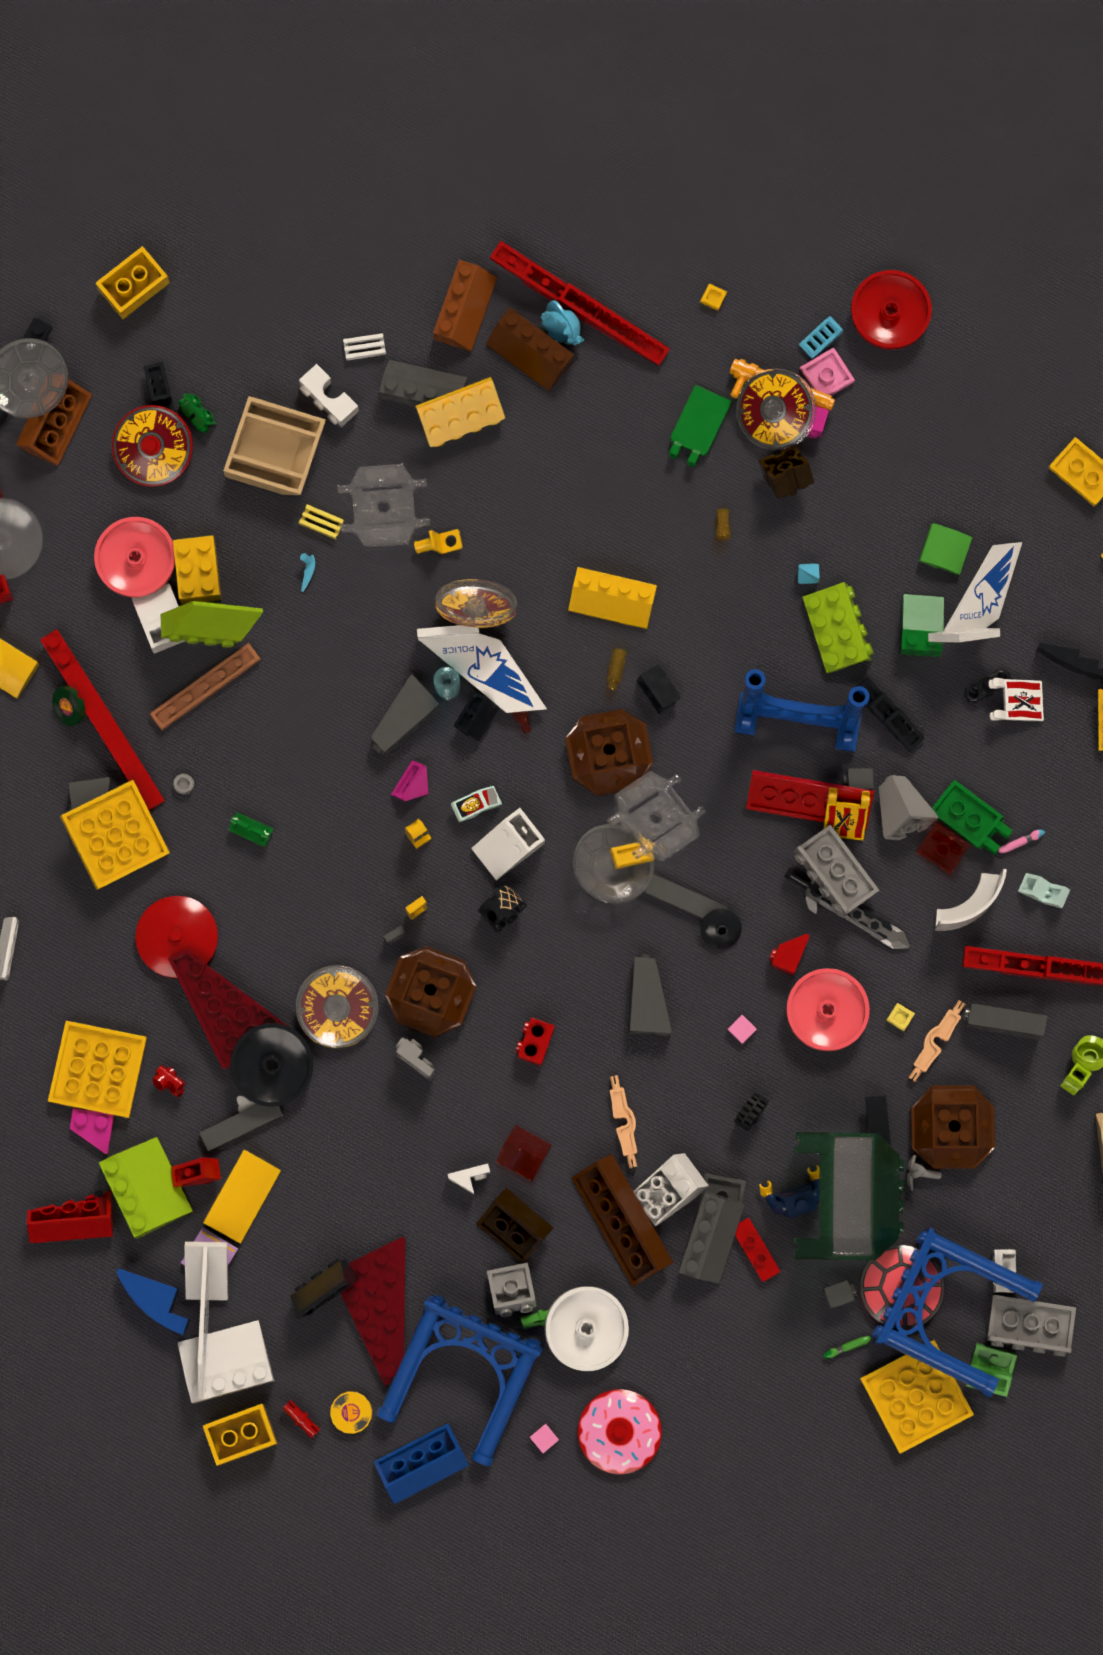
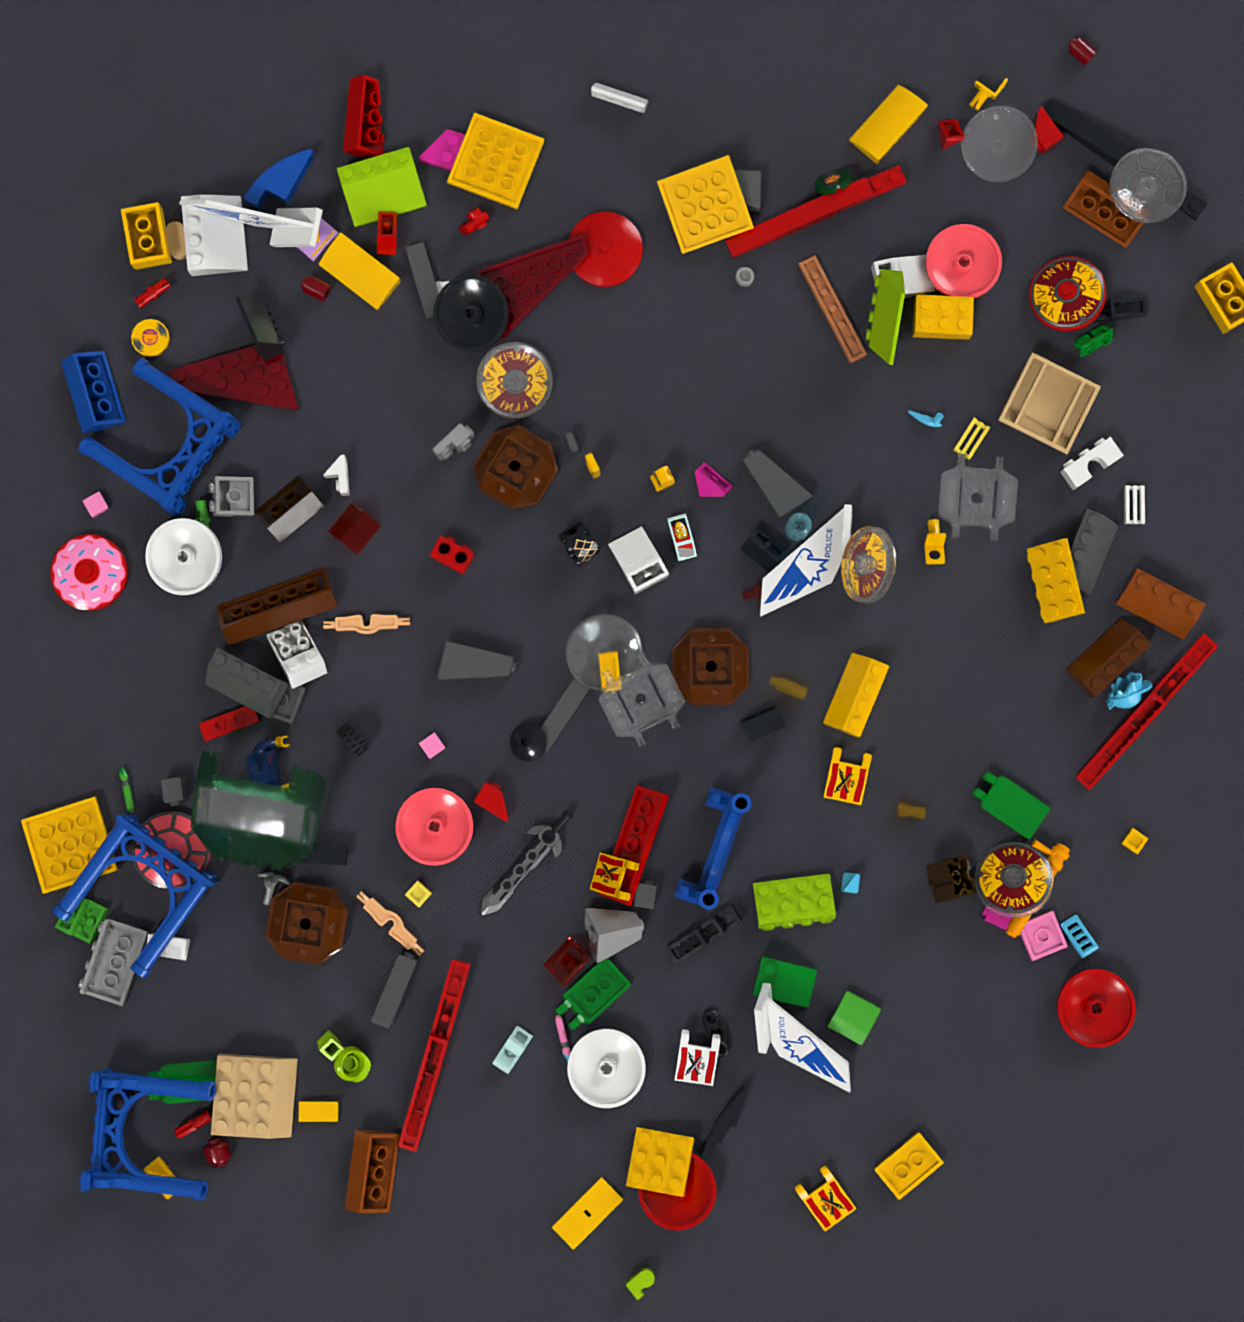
camera: 100 degrees right, 5 degrees up
(237, 1402) = (176, 240): none -> tan tile
(250, 829) = (692, 329): green hinge -> none
(268, 1240) = (316, 288): none -> dark red brick
(702, 594) = (845, 780): none -> flag
(835, 871) = (561, 857): light grey bracket -> none
(974, 907) = (506, 980): white panel -> none
(1044, 790) = (606, 1068): none -> white dish

